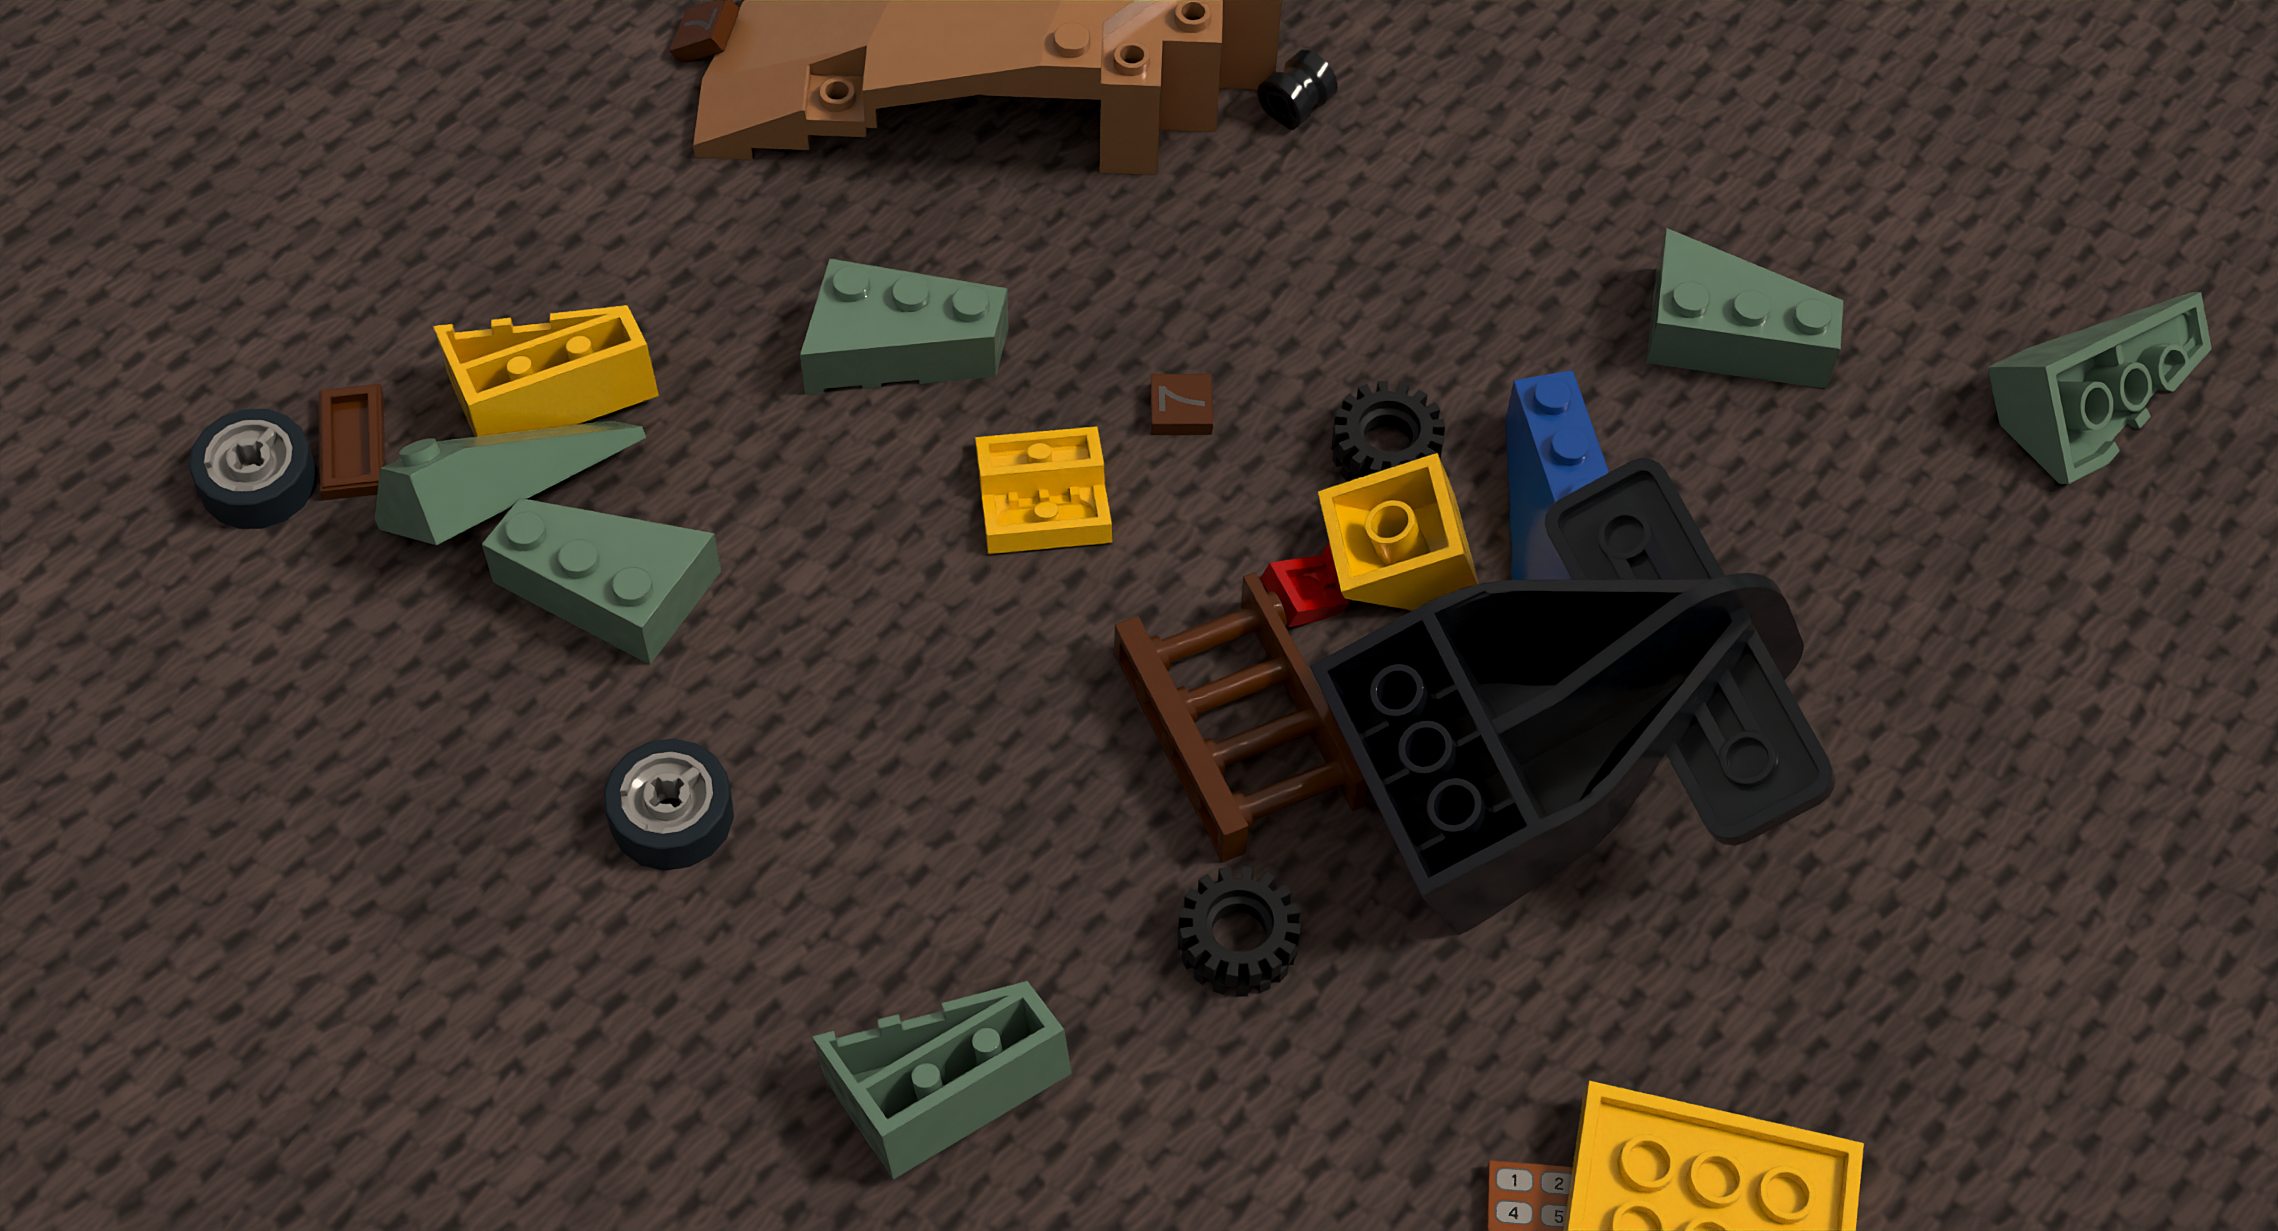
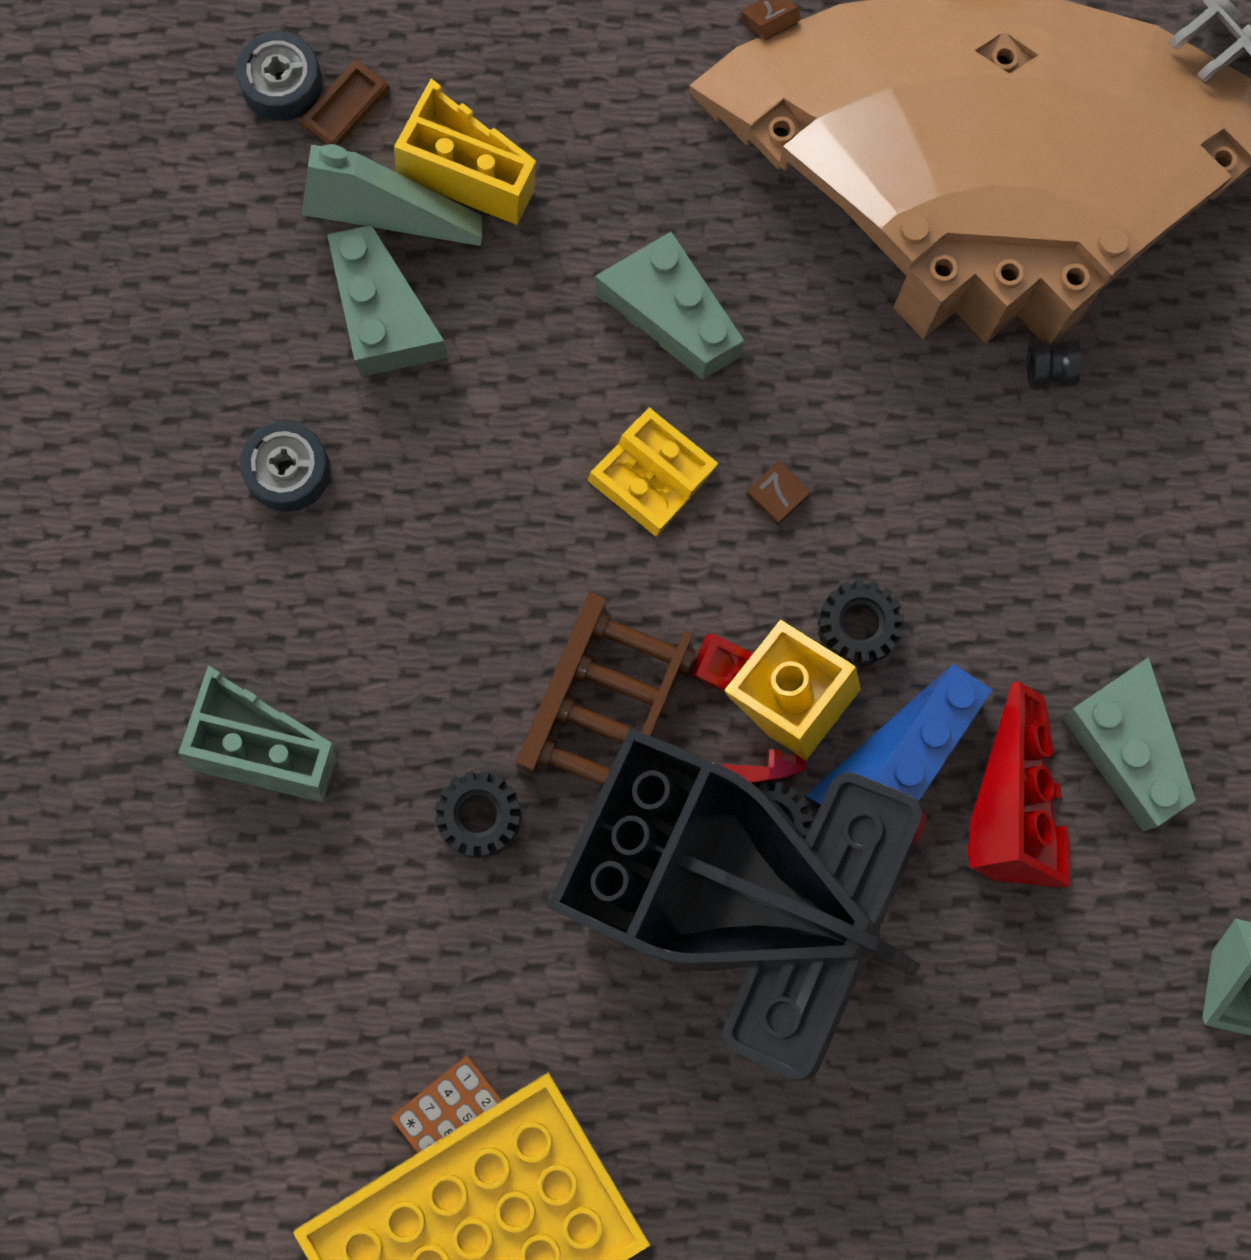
camera: 45 degrees right, 20 degrees up
(1725, 479) = (1014, 815): none -> red wedge

